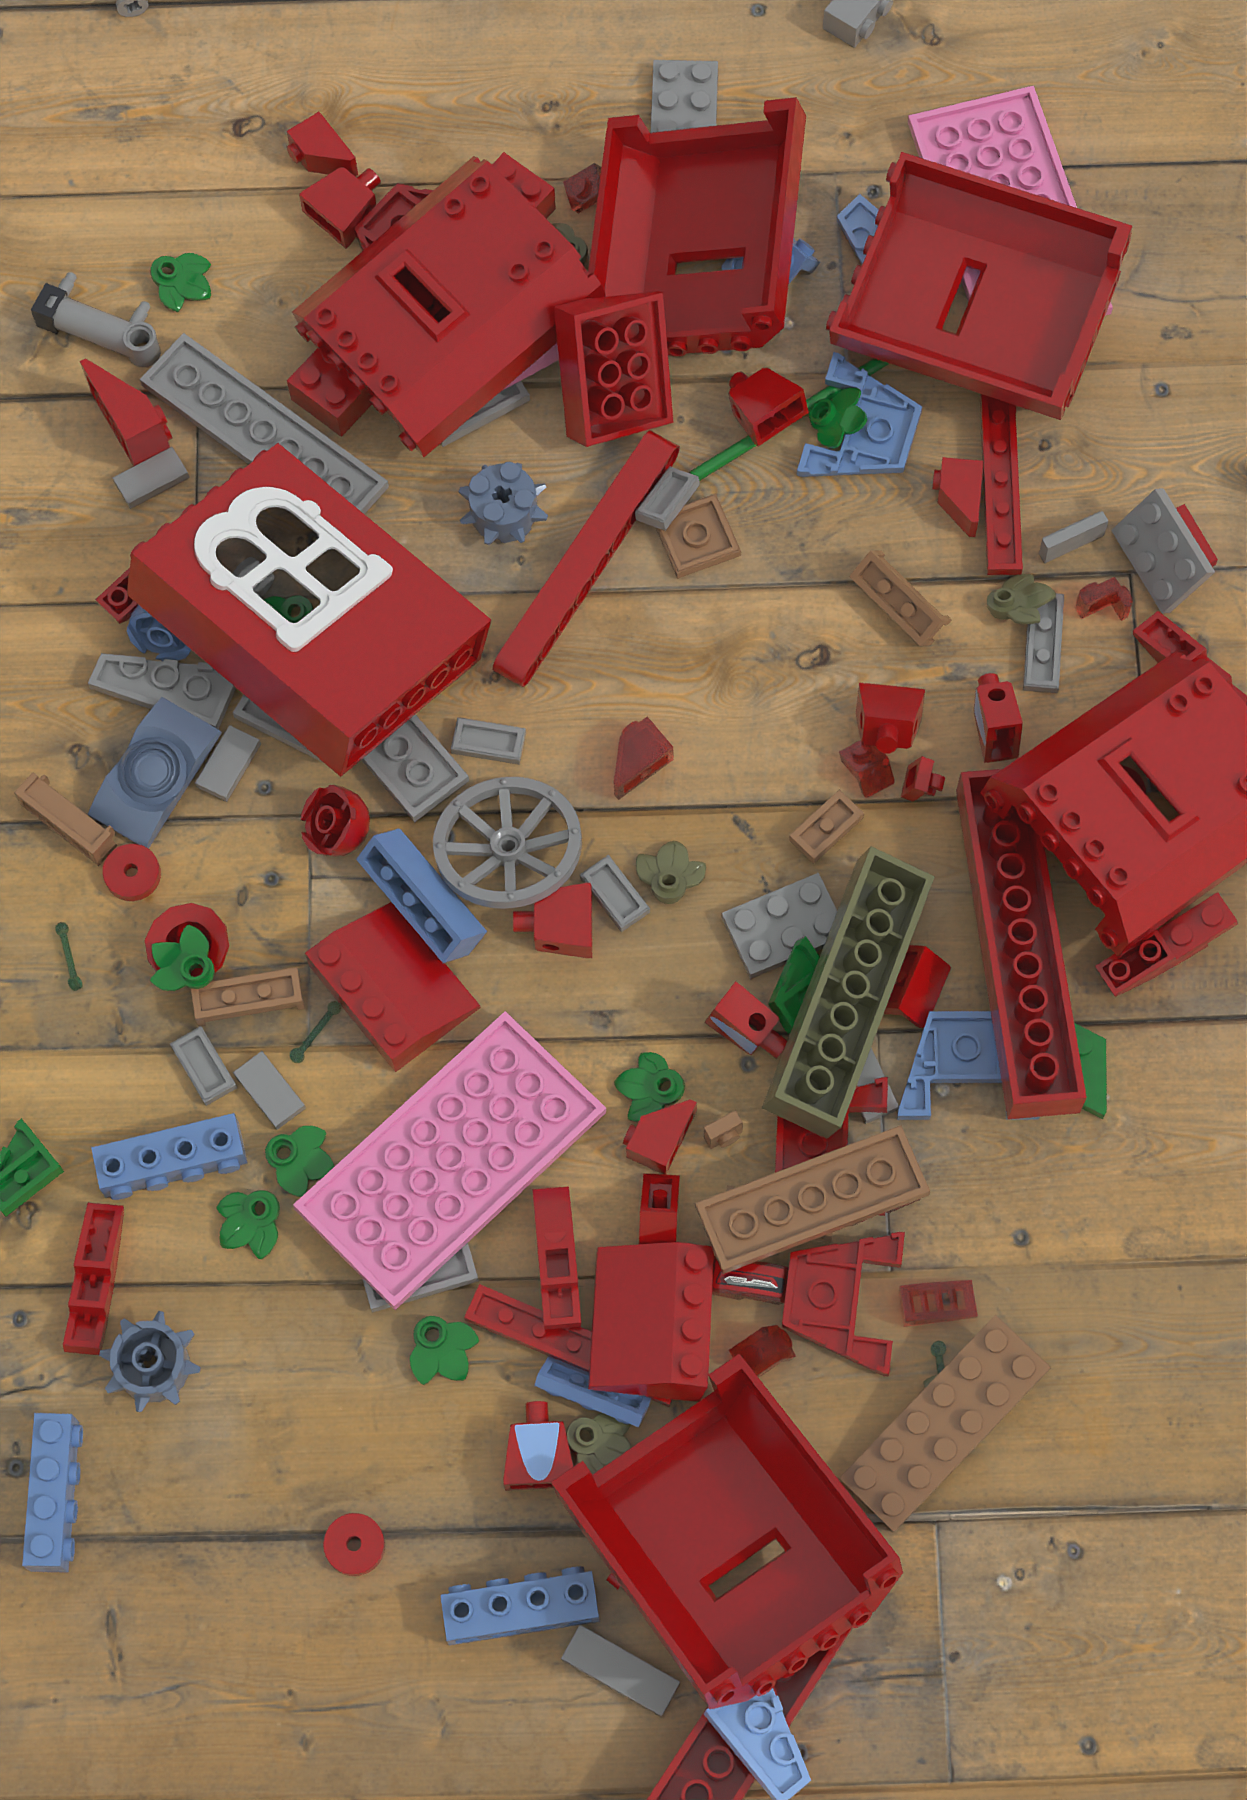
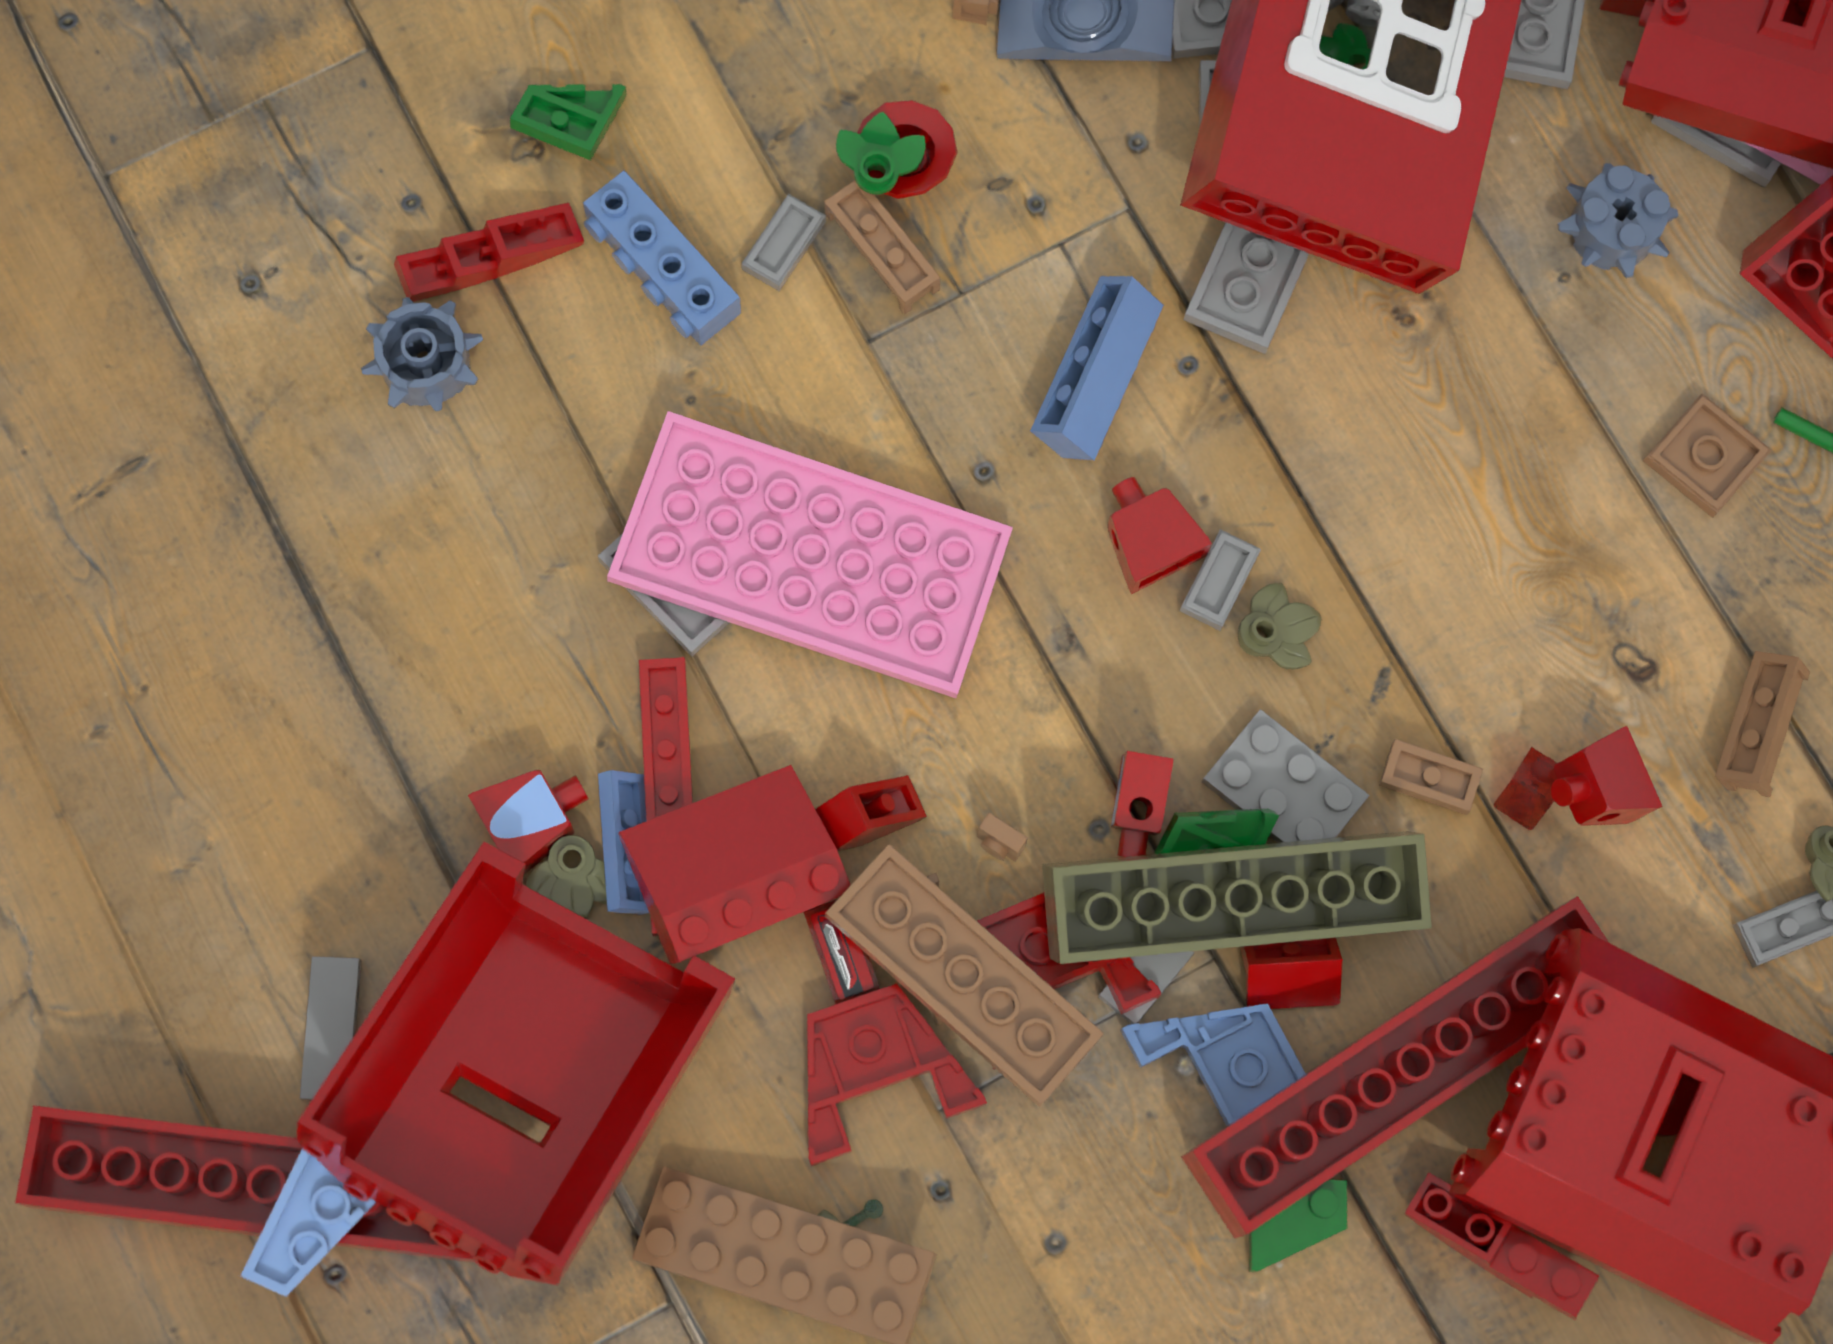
camera: 55 degrees right, 5 degrees up
(51, 1493) = (233, 329): medium blue brick -> none
(74, 981) = (807, 61): clear green hinge -> none
(139, 885) = (962, 36): red piece -> none
(228, 763) = (1142, 88): light grey tile -> none
(245, 1225) = (627, 379): green plate -> none
(269, 1090) = (792, 325): light grey tile -> none
(297, 1054) = (849, 334): clear green hinge -> none
(305, 1159) = (730, 403): green plate -> none
(335, 821) = (1132, 233): red cylinder -> none
(341, 1532) = (327, 653): red piece -> none
(391, 984) = (978, 390): red slope -> none
(443, 1355) = (588, 660): green plate -> none
(488, 741) = (1325, 351): light grey tile -> none
(507, 839) = (1214, 426): light grey wheel -> none
(519, 1607) = (345, 883): medium blue brick -> none
(556, 1258) = (755, 723): red slope -> none
(584, 560) = (1607, 345): red beam -> none
(640, 755) = (1396, 523): clear red slope -> none
(645, 1083) = (1011, 725): green plate -> none
(659, 1135) = (958, 770): red slope -> none
(667, 498) = (1732, 398): light grey tile -> none
(765, 1349) = (767, 1009): clear red bracket -> none
(910, 1318) = (904, 1146): clear red slope -> none
(921, 780) = (1548, 858): red tile -> none
(993, 710) = (1674, 909): red torso -> none

